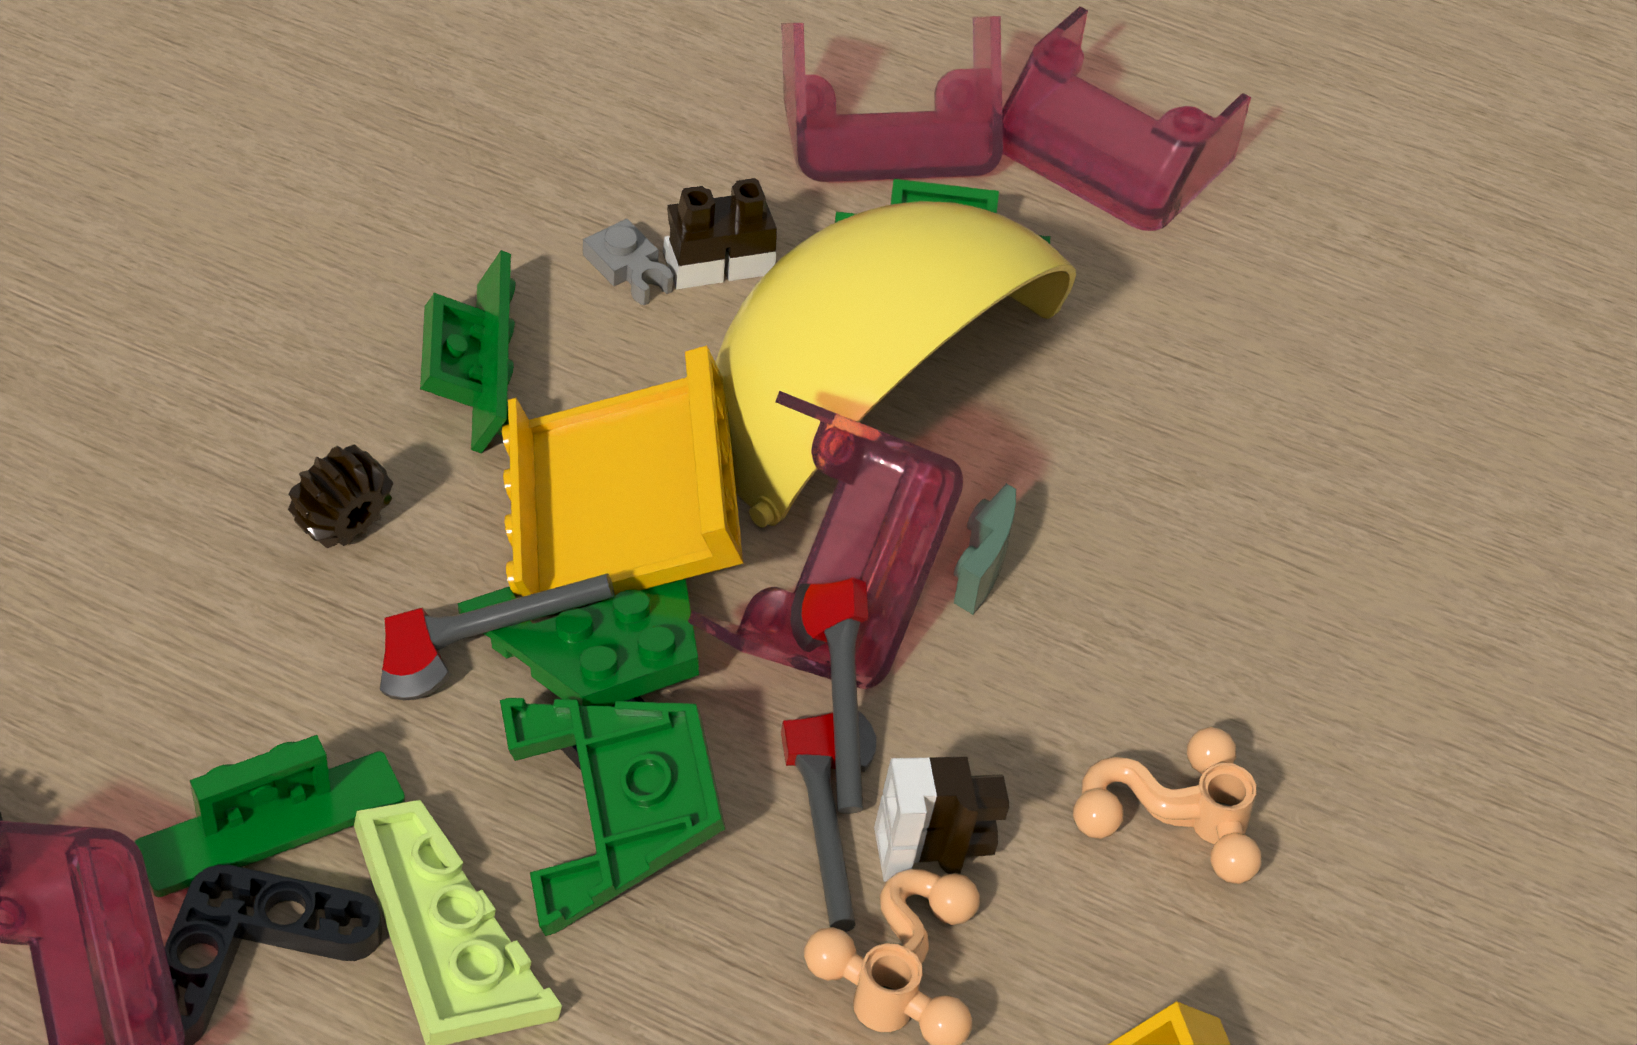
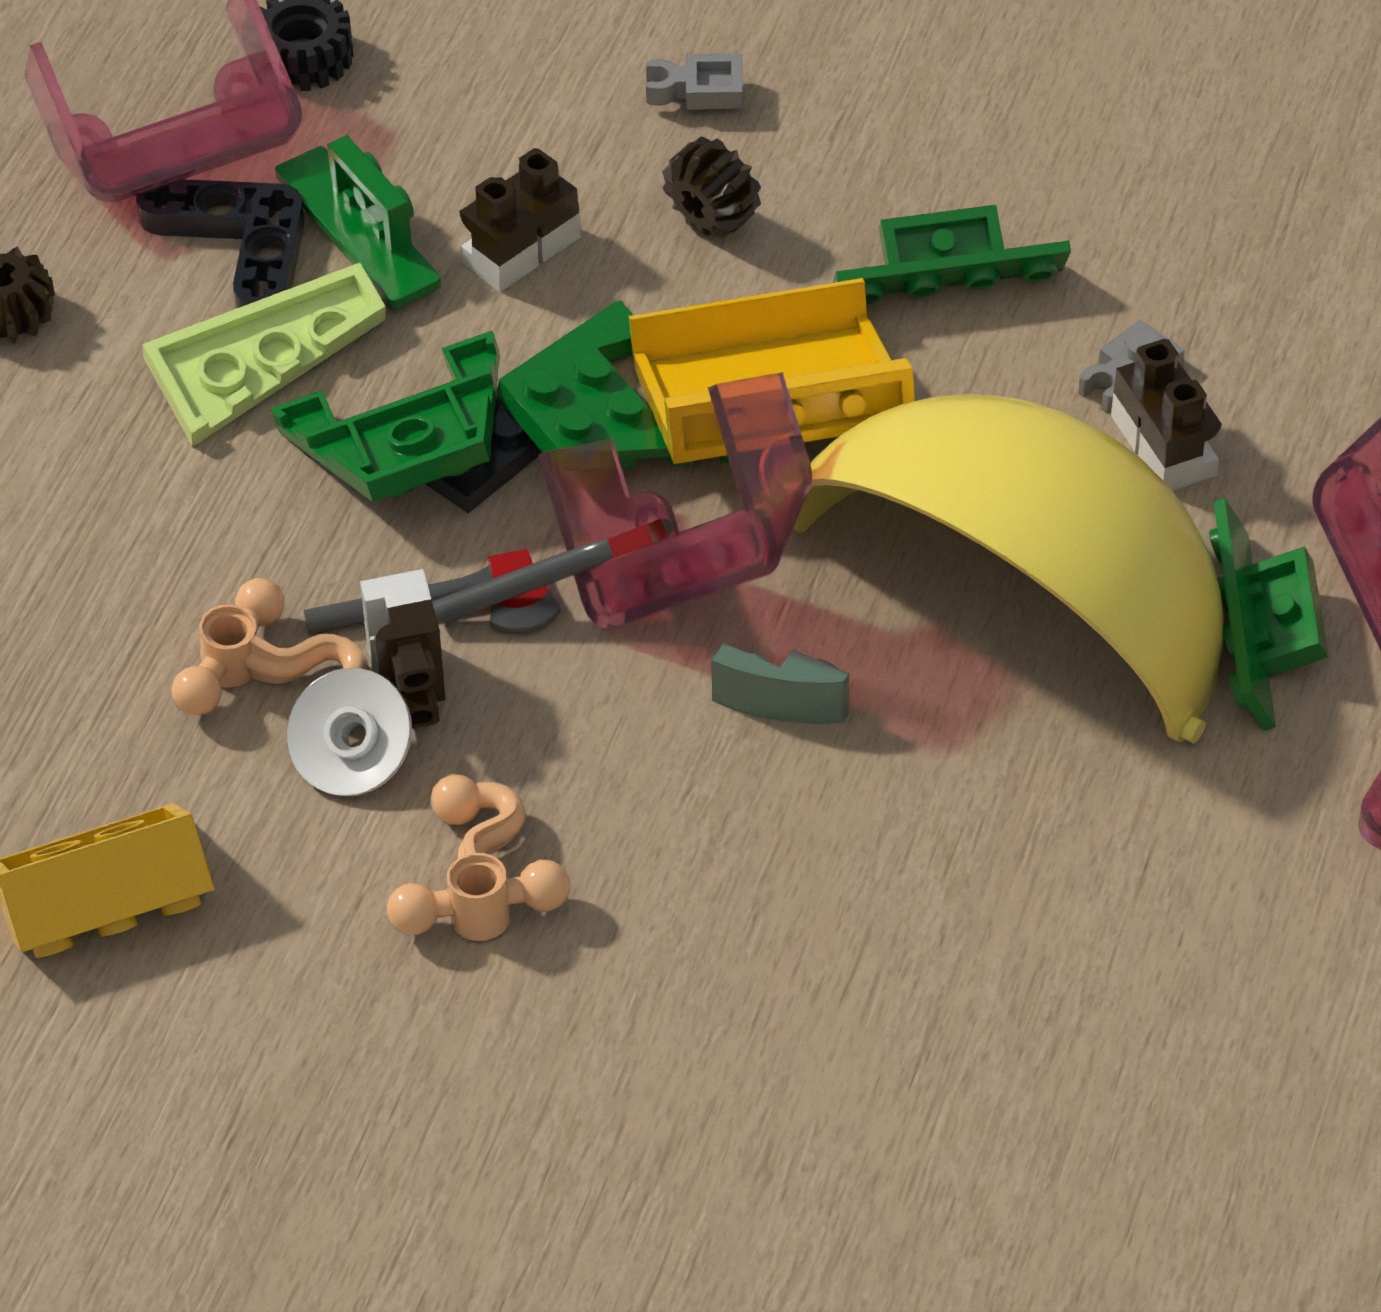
camera: 90 degrees right, 0 degrees up
(153, 490) = (704, 82): none -> light grey plate
(334, 665) = (520, 221): none -> dark brown hips
(414, 638) = (573, 281): piece -> none
(1038, 885) = (327, 715): none -> white dish

